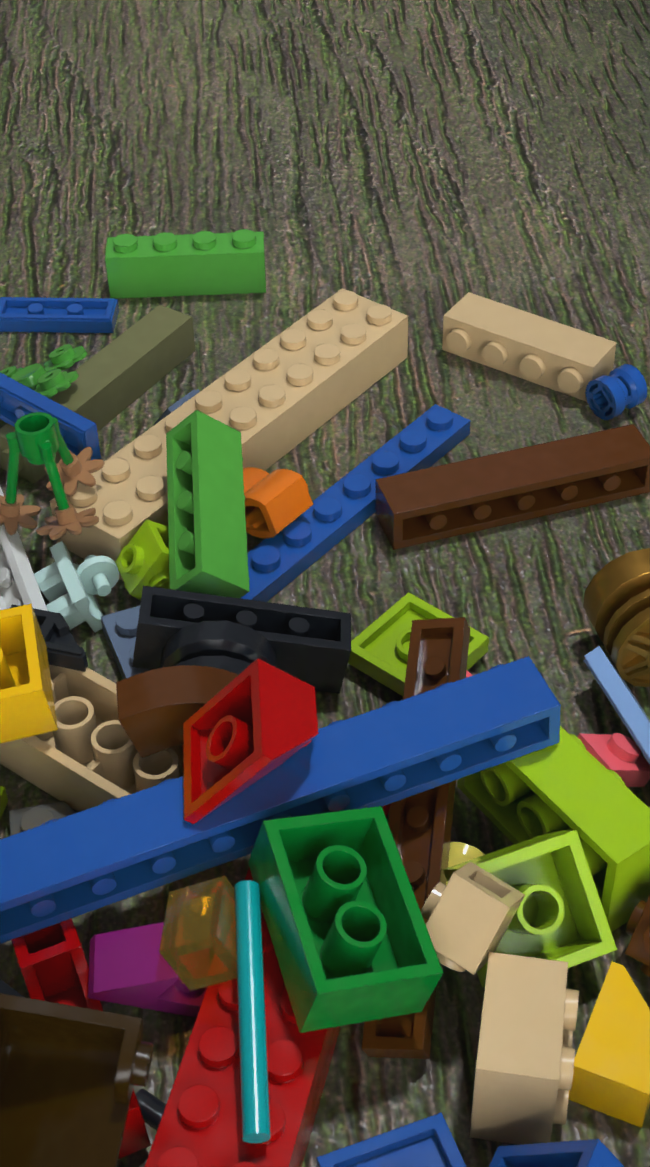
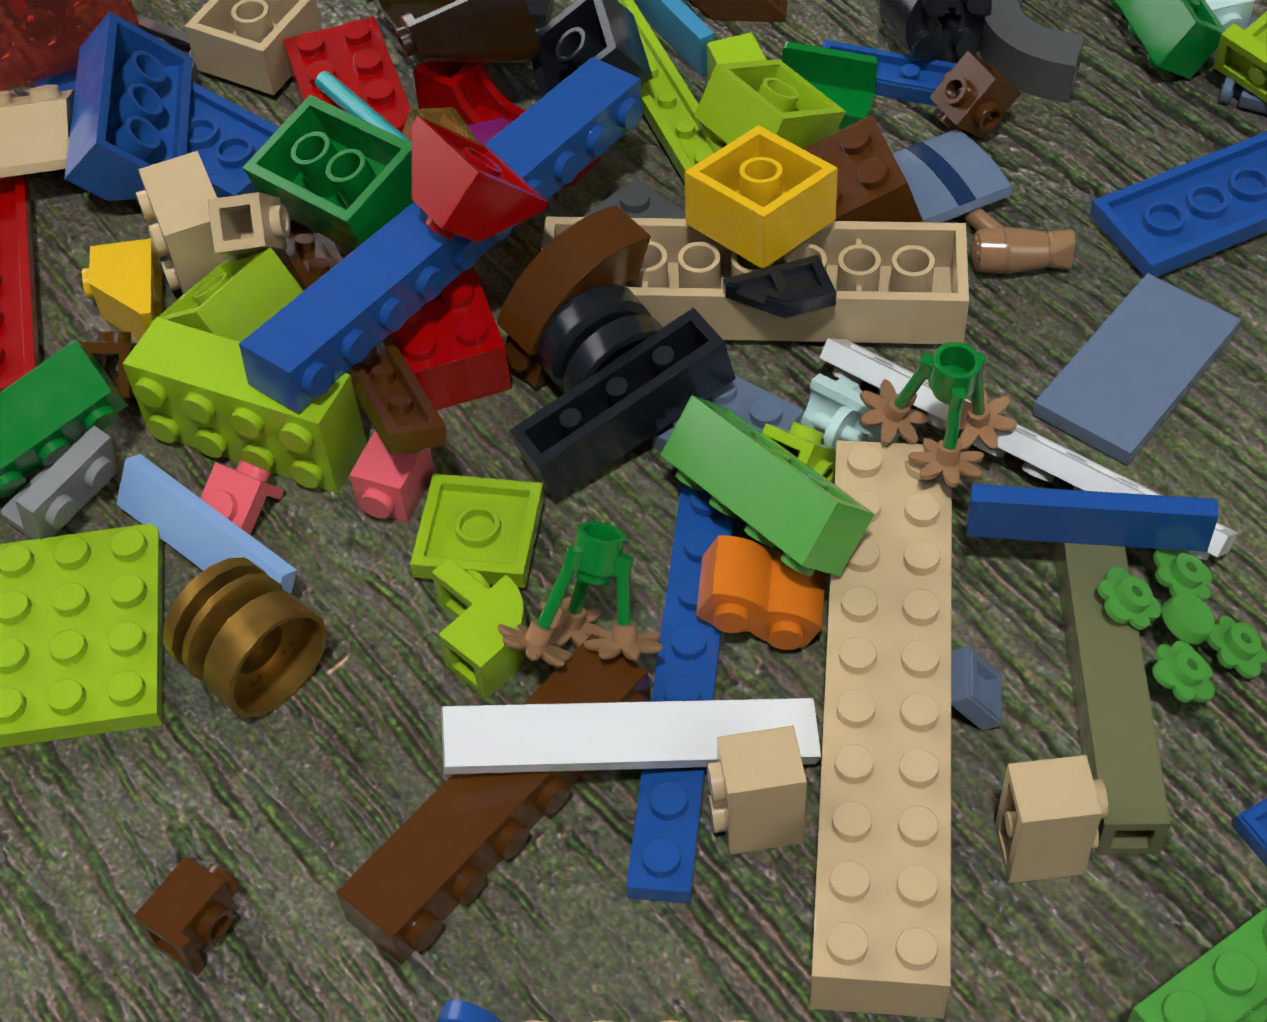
camera: 150 degrees right, 10 degrees up
(217, 326) = (1049, 818): none -> tan brick
(361, 398) = (758, 790): none -> tan brick
(373, 488) = (593, 561): none -> plant
(421, 450) = (612, 734): none -> white tile
(461, 573) = (472, 641): none -> lime brick

